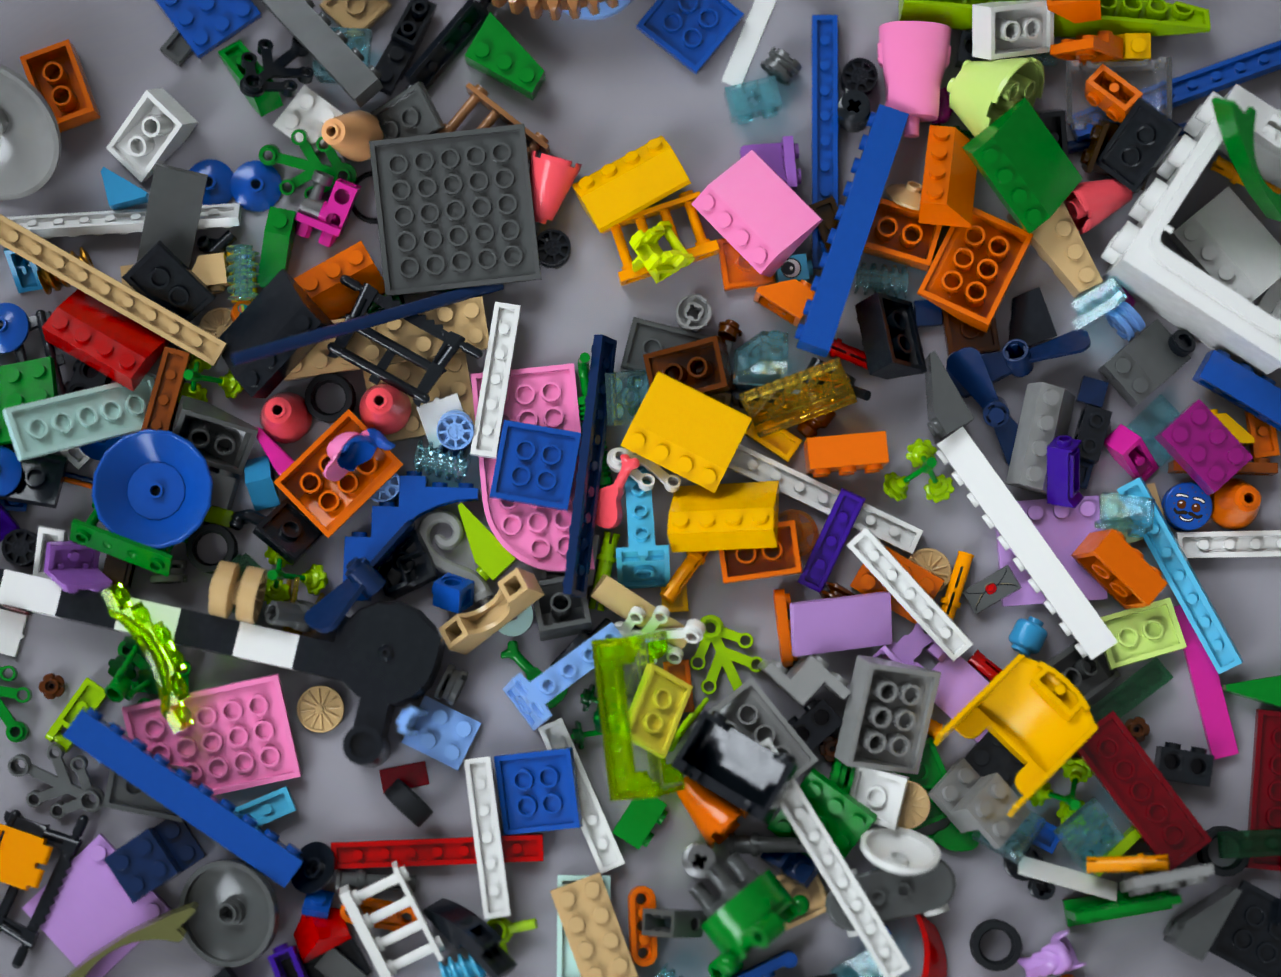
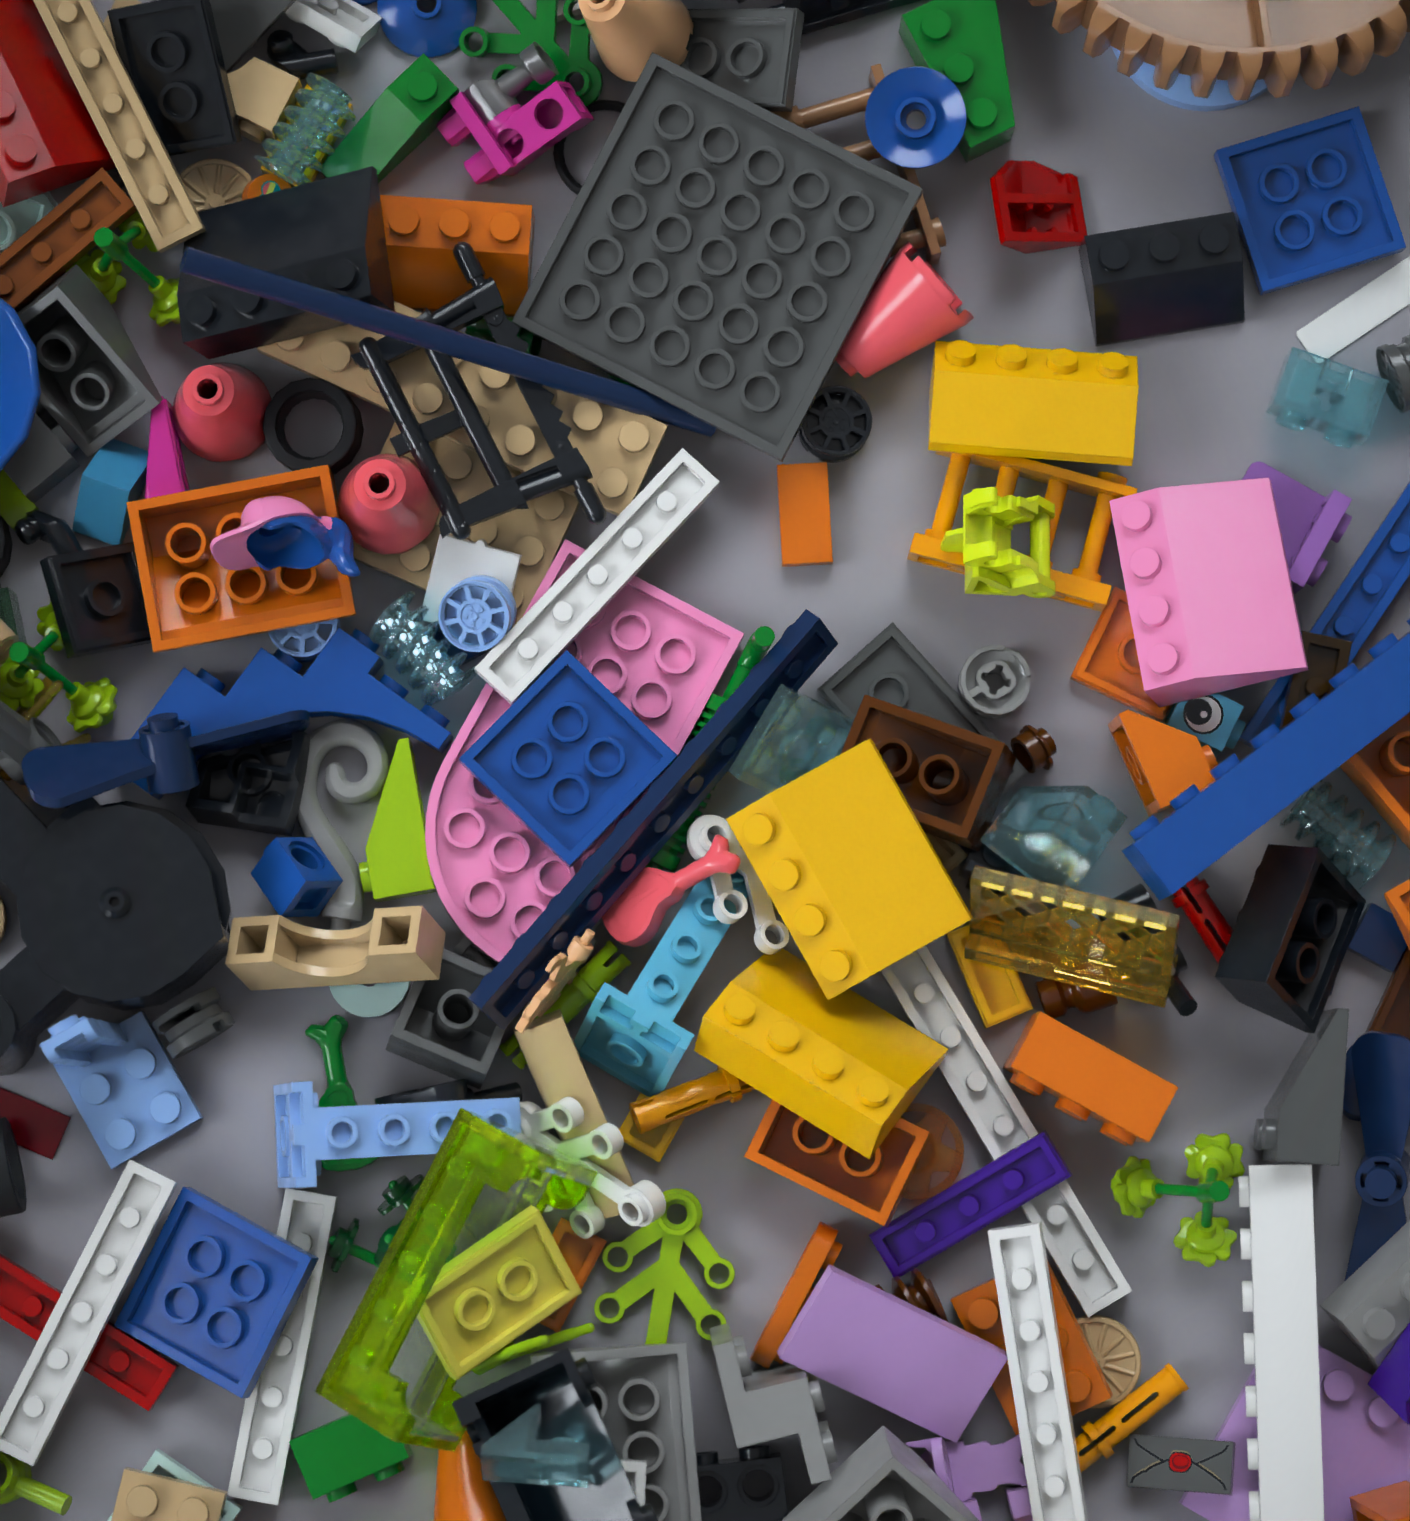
camera: 35 degrees right, 0 degrees up
(500, 81) = (915, 91): none -> blue dish
(565, 296) = (804, 514): none -> orange tile
(576, 99) = (1037, 207): none -> red slope
(595, 557) = (562, 971): none -> light nougat piece
(650, 94) = (1163, 278): none -> black slope
(716, 769) = (522, 1457): none -> clear light blue slope

